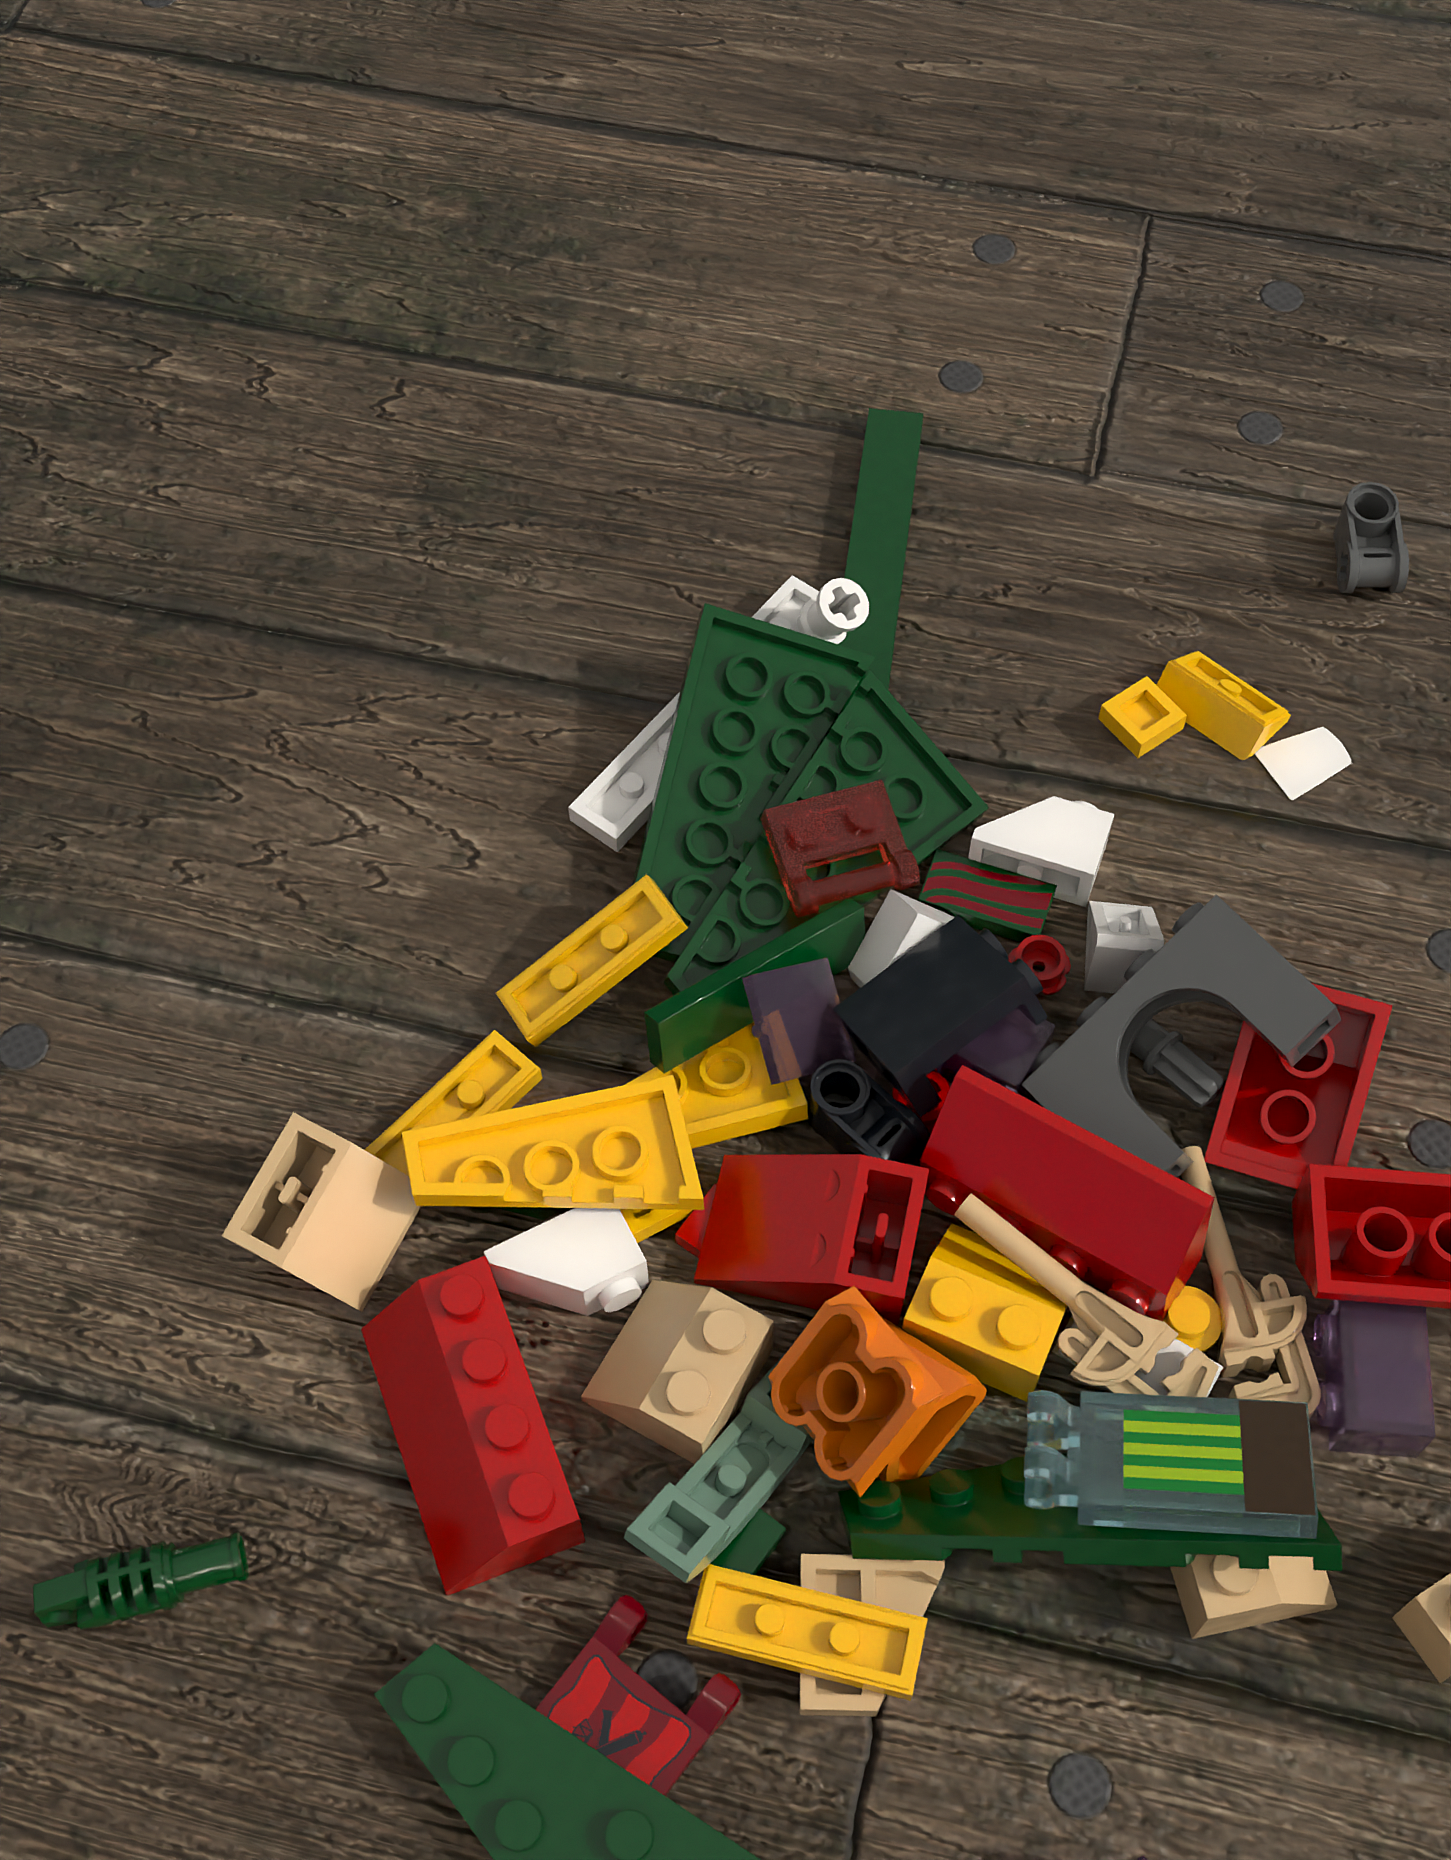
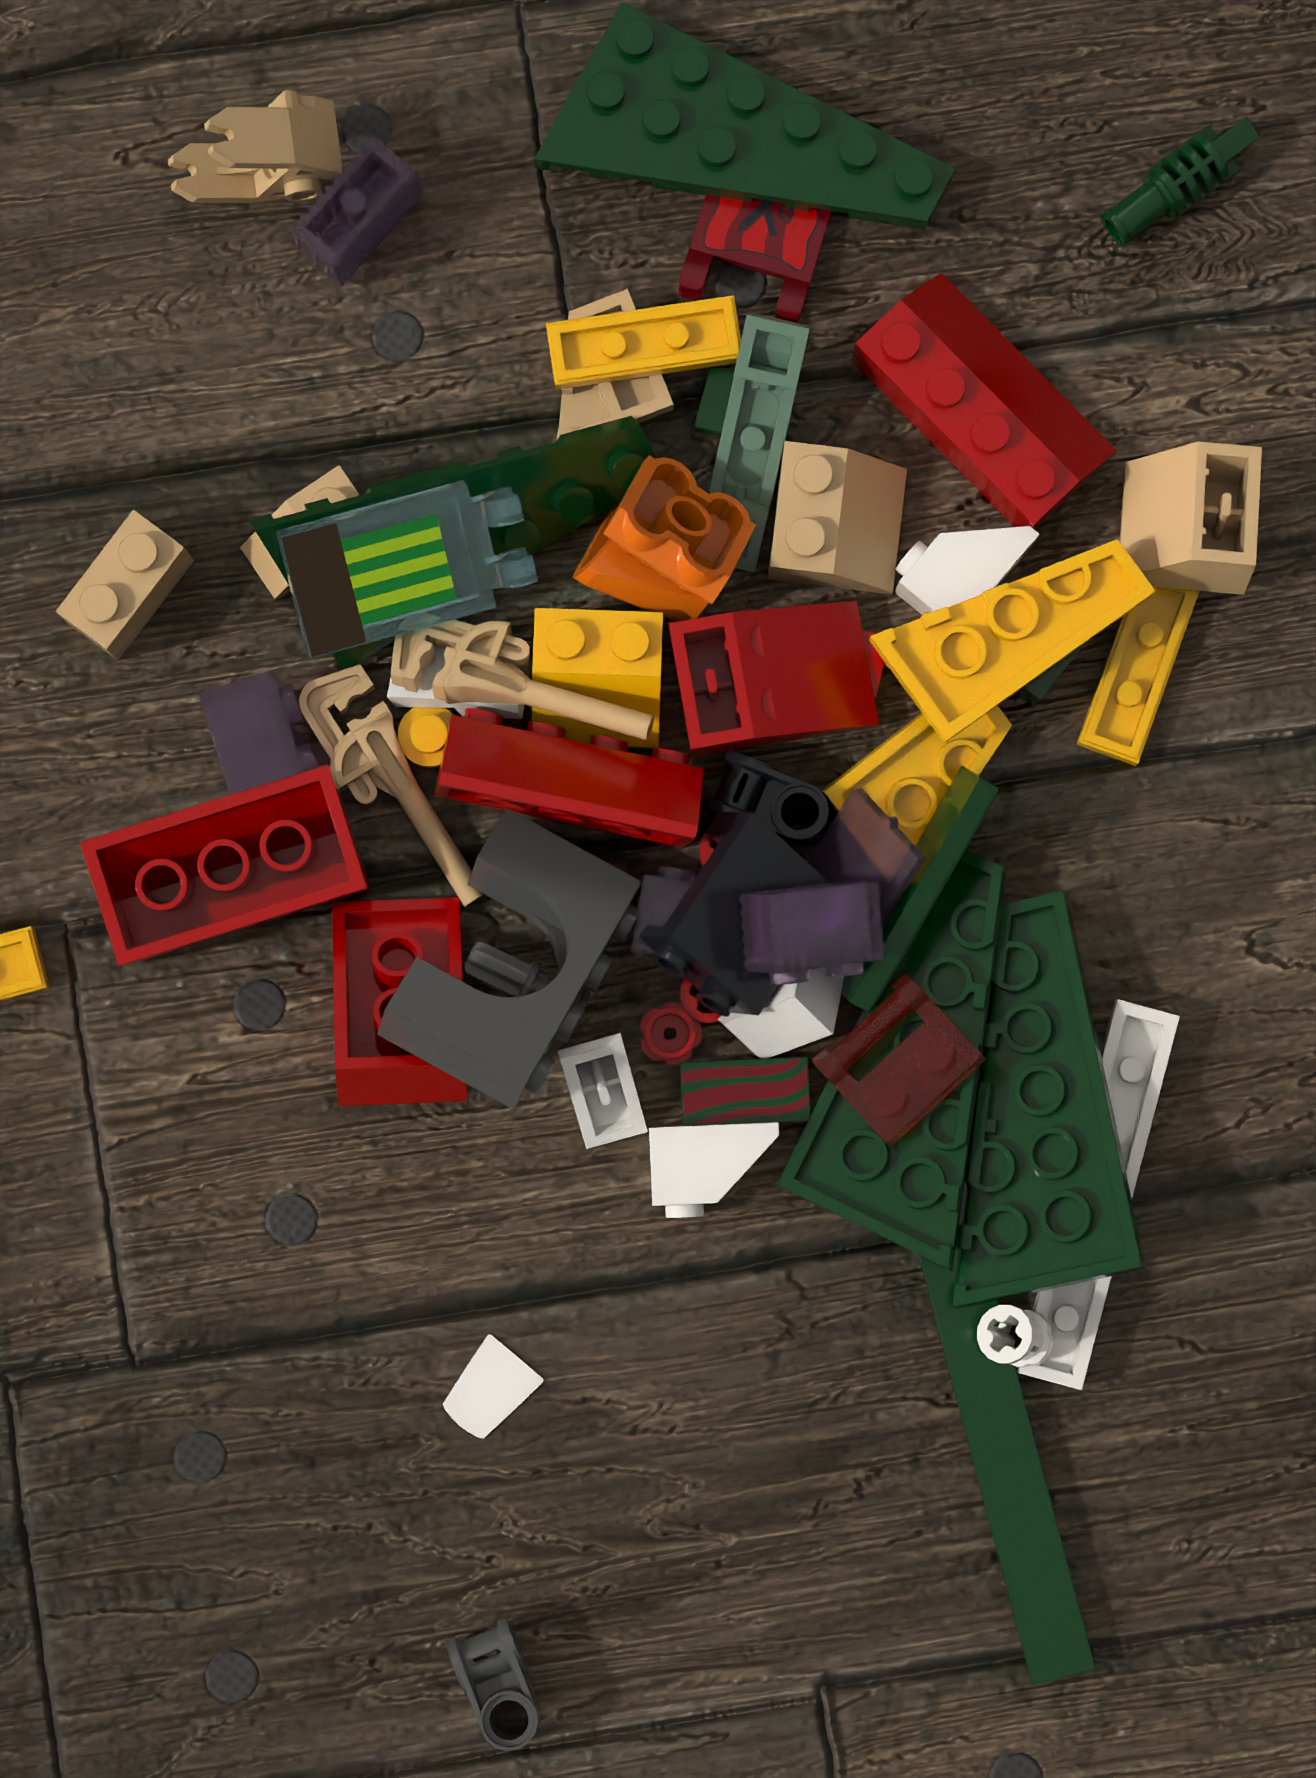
camera: 155 degrees right, 25 degrees up
(591, 960) = (1079, 857): yellow tile -> none
(877, 960) = (812, 929): none -> clear purple brick
(1142, 716) = (664, 1361): yellow plate -> none
(1221, 704) = (593, 1420): yellow slope -> none

